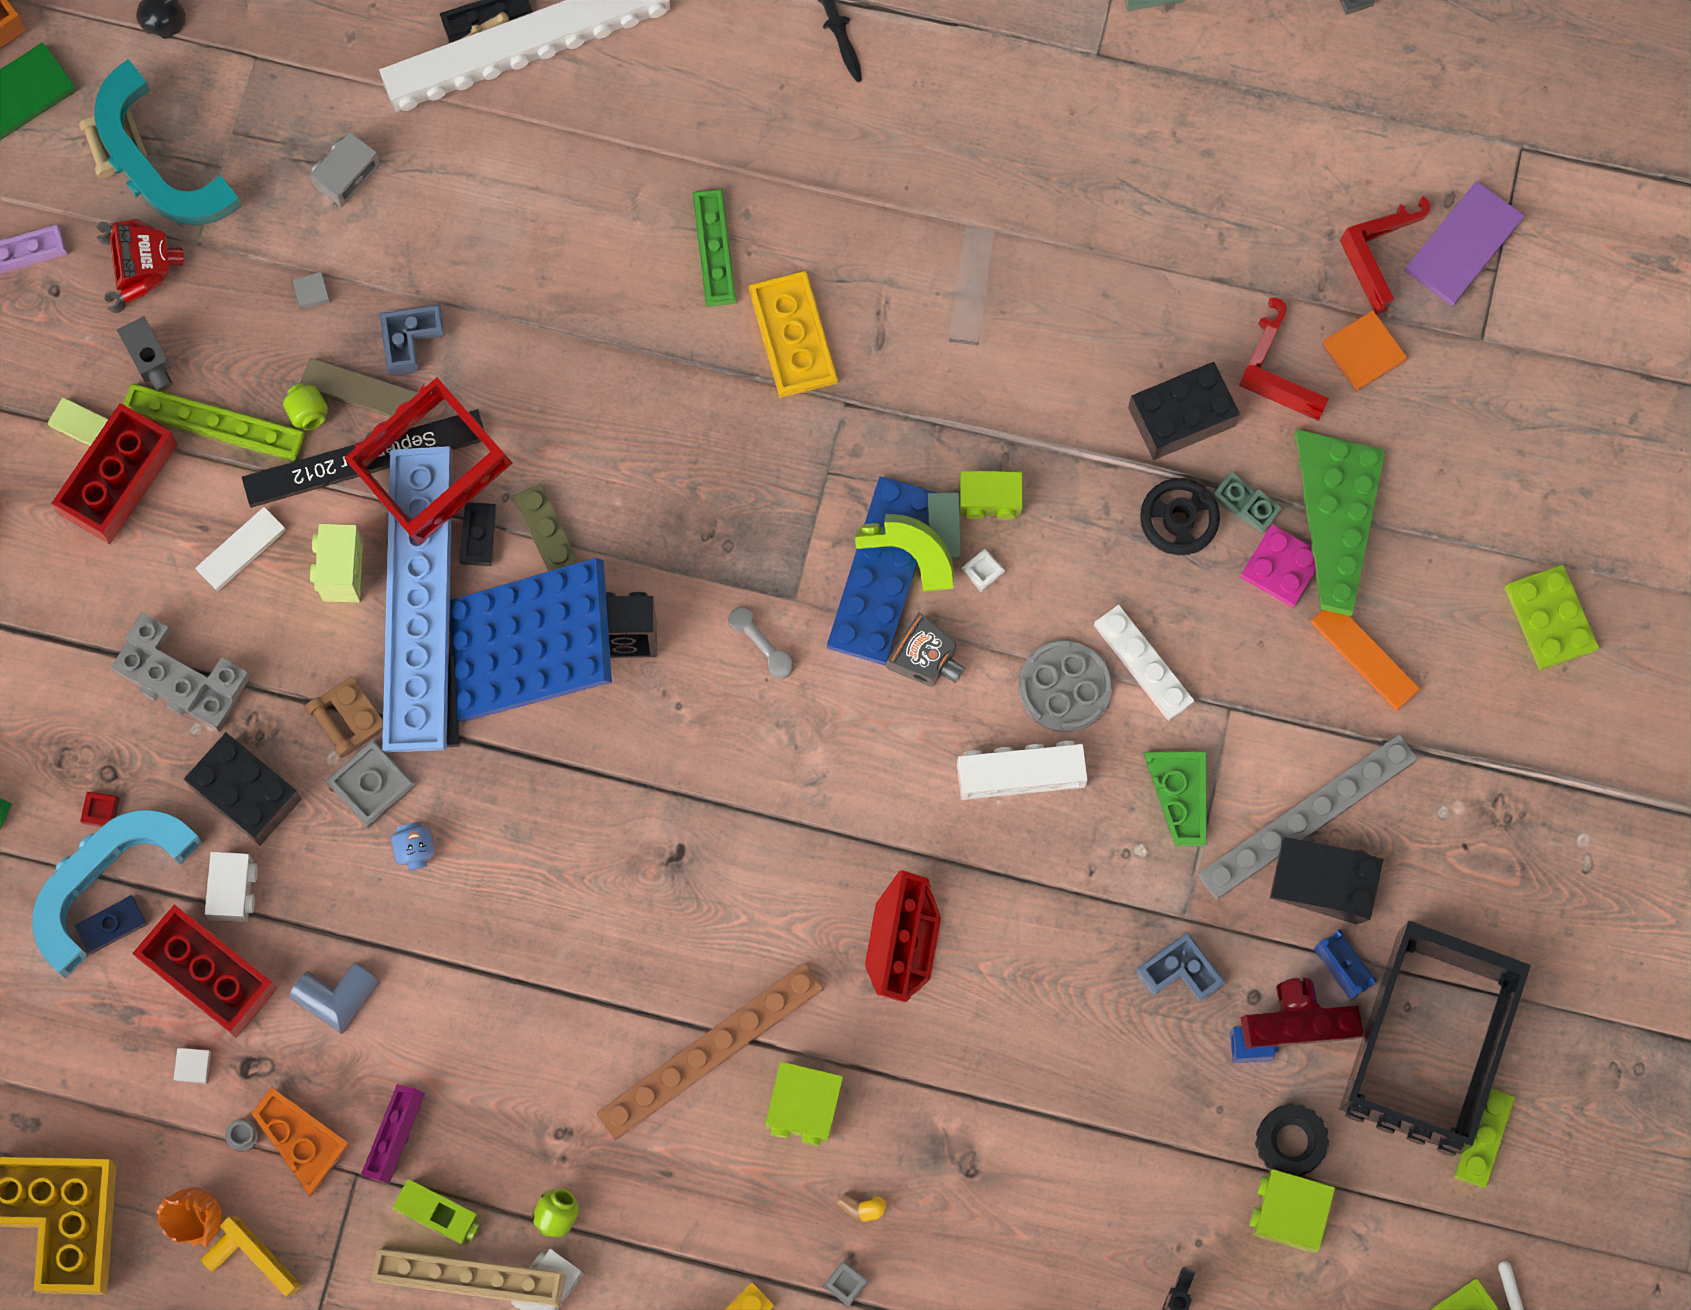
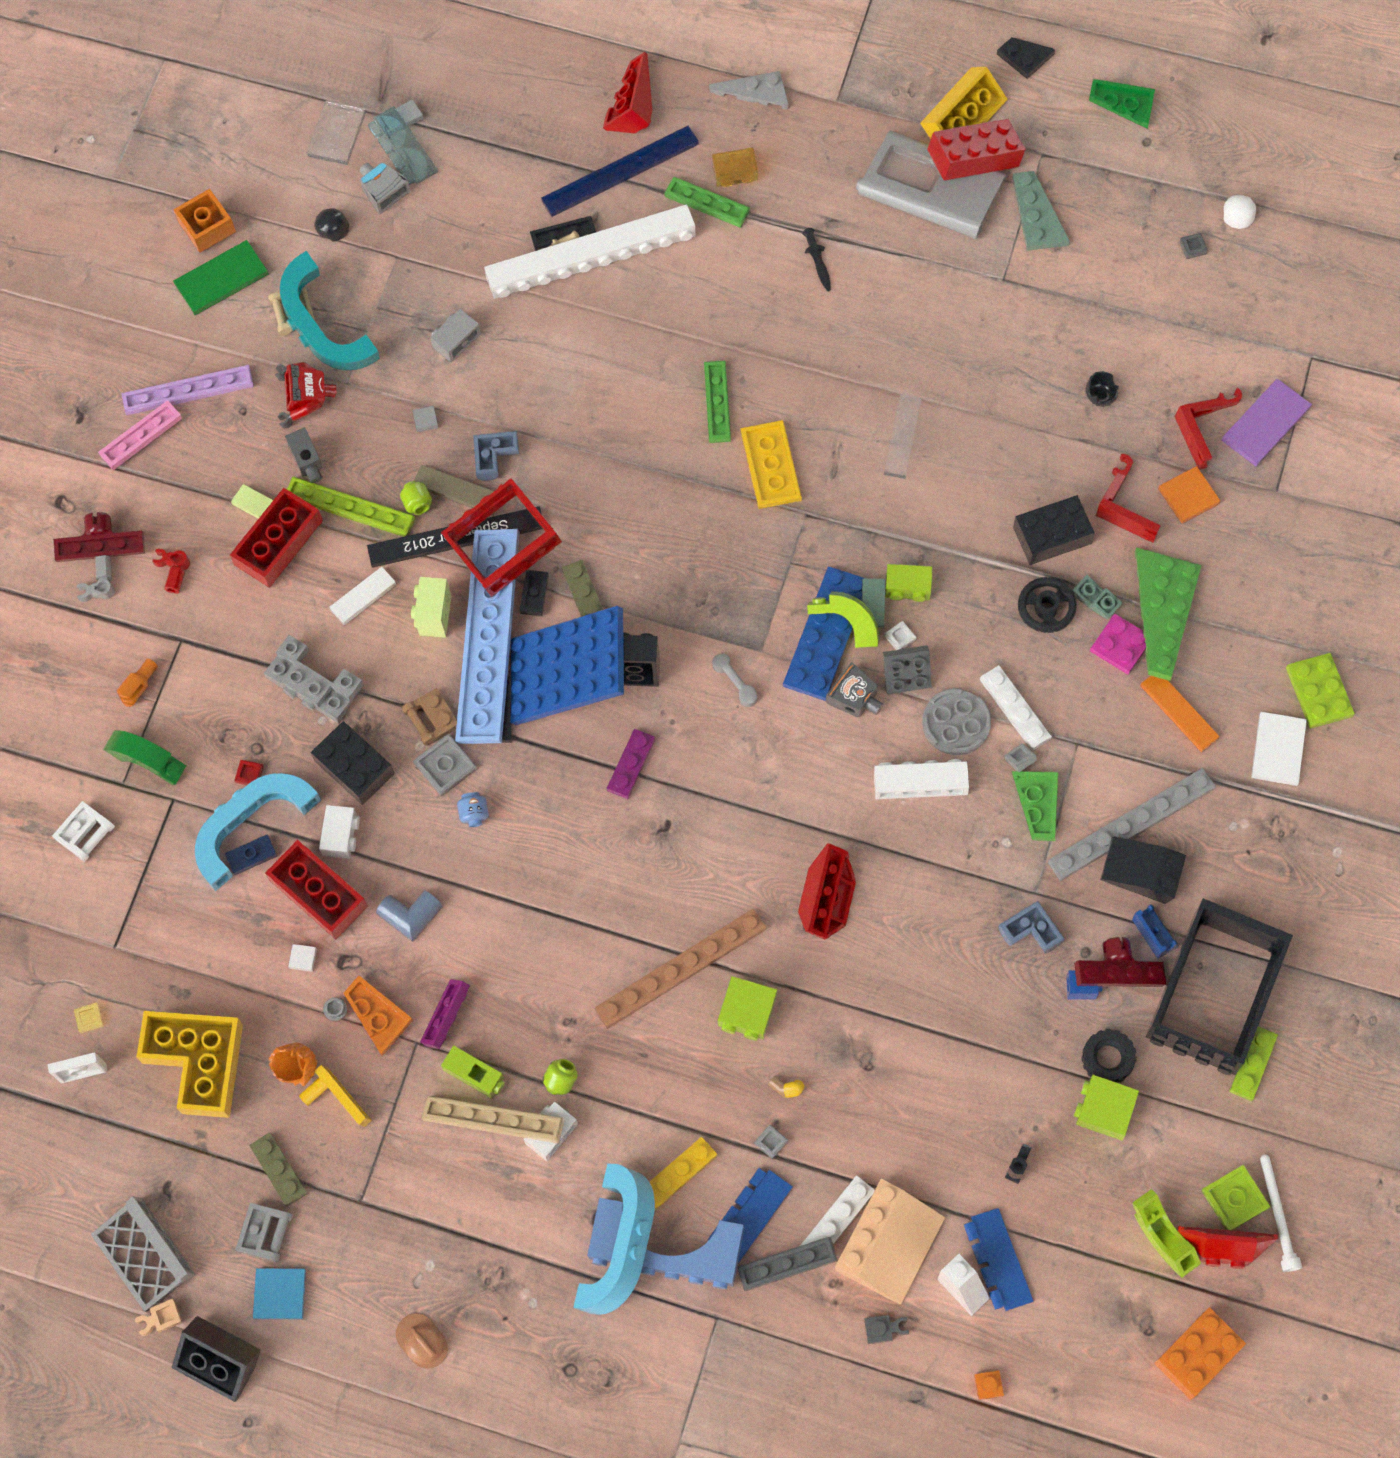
camera: 10 degrees right, 5 degrees down
(625, 768) = (630, 764): none -> magenta plate
(995, 612) = (905, 665): none -> dark grey plate
(1154, 733) = (1020, 757): none -> light grey tile
(1240, 207) = (1101, 389): none -> black hair
(1499, 701) = (1278, 748): none -> white tile

